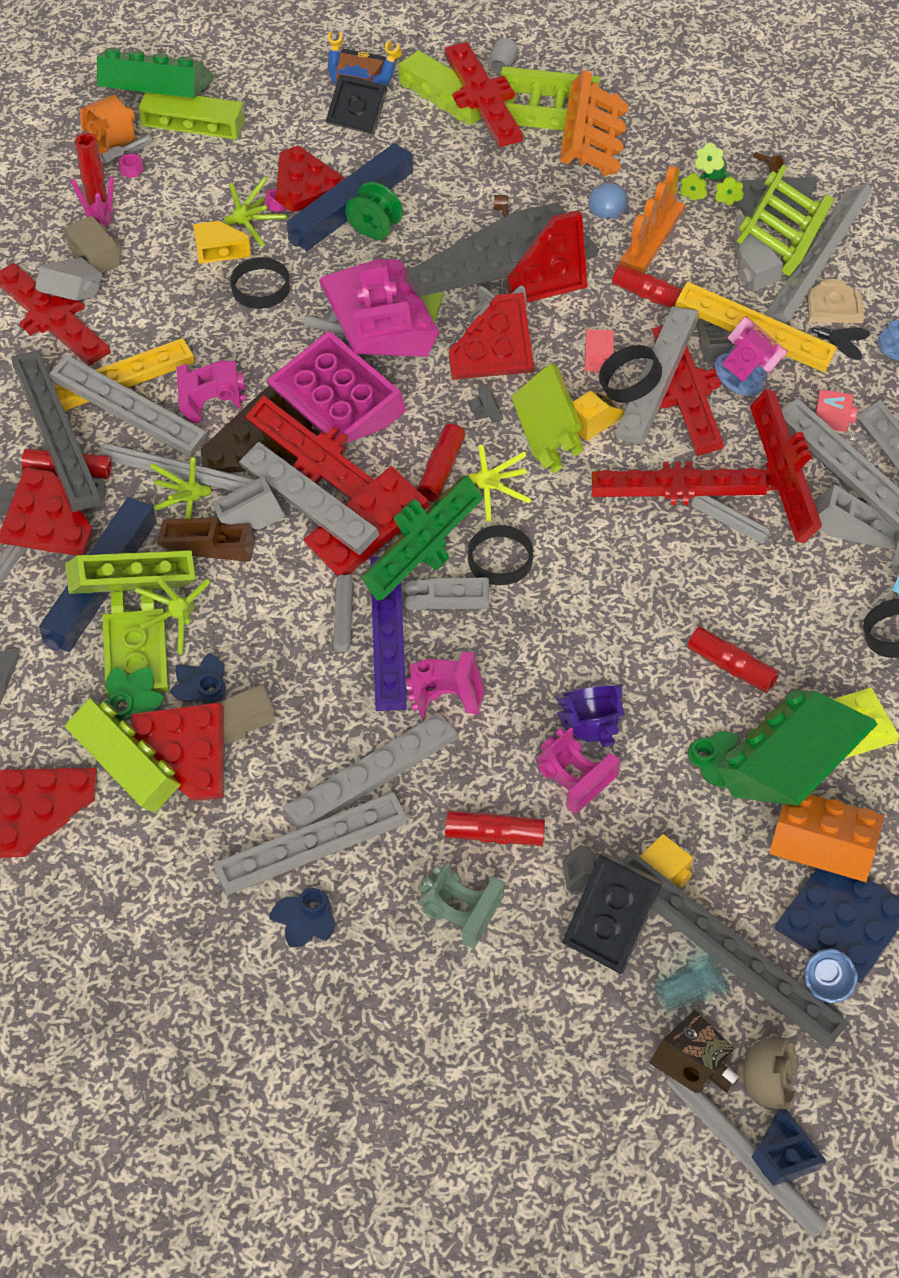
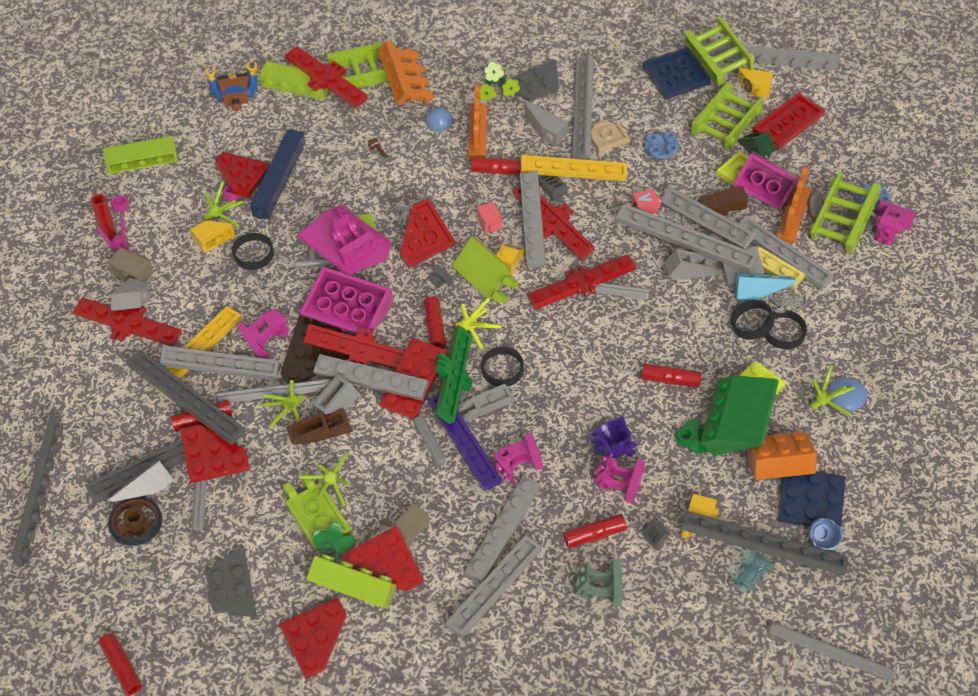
camera: 25 degrees left, 0 degrees up
(75, 611) = (265, 478): dark blue brick -> none
(108, 122) = (91, 180): orange brick -> none
(117, 152) = (113, 190): light grey piece -> none
(129, 571) = (291, 467): lime brick -> none
(151, 73) = (102, 138): green slope -> none
(195, 680) = (365, 517): dark blue plate -> none
(304, 922) = (515, 633): dark blue plate -> none
(356, 104) = (246, 111): black tile -> none
(374, 210) = (294, 180): green piece -> none
(488, 253) = (400, 170): dark grey wing -> none
(502, 55) = (319, 46): light grey brick -> none
(554, 260) = (434, 170): red plate -> none
(612, 912) = (692, 550): black tile -> none
(638, 390) = (528, 235): black tyre -> none
(695, 1055) = (780, 610): dark brown torso -> none
(752, 349) = (583, 182): dark pink tile -> none
(752, 384) = (579, 200): medium blue dish -> none
(769, 1073) = (822, 602): dark tan cylinder -> none
(774, 162) = (525, 58): reddish brown hand -> none
(784, 466) = (639, 246): red hinge -> none
(786, 1151) = (853, 640): dark blue wing -> none
(808, 224) = (569, 91): lime fence -> none
(842, 339) = (624, 156): black piece -> none

